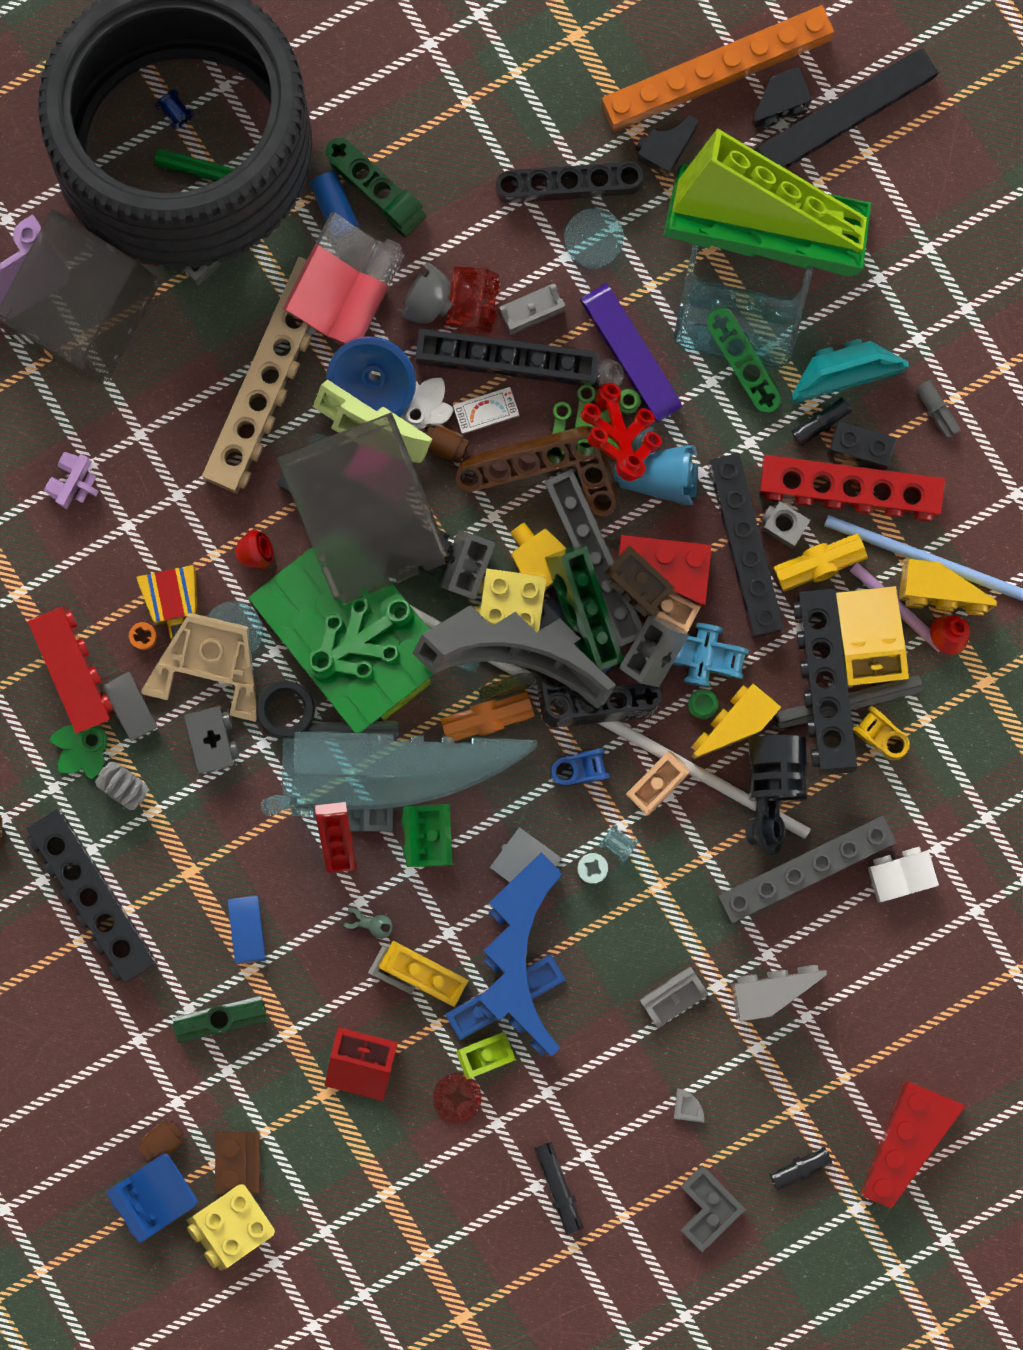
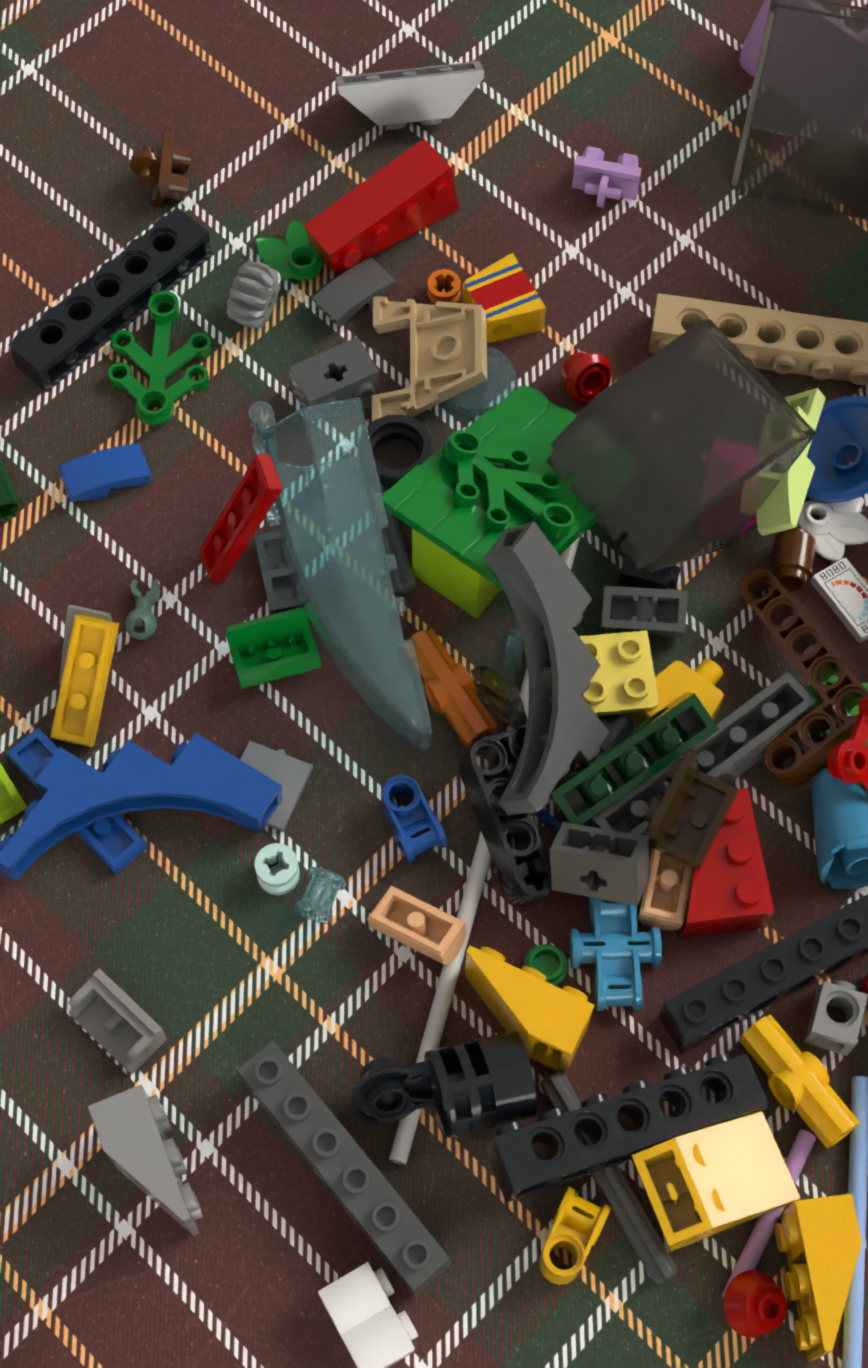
camera: 75 degrees right, 20 degrees down
(160, 871) = (160, 366): none -> green plant

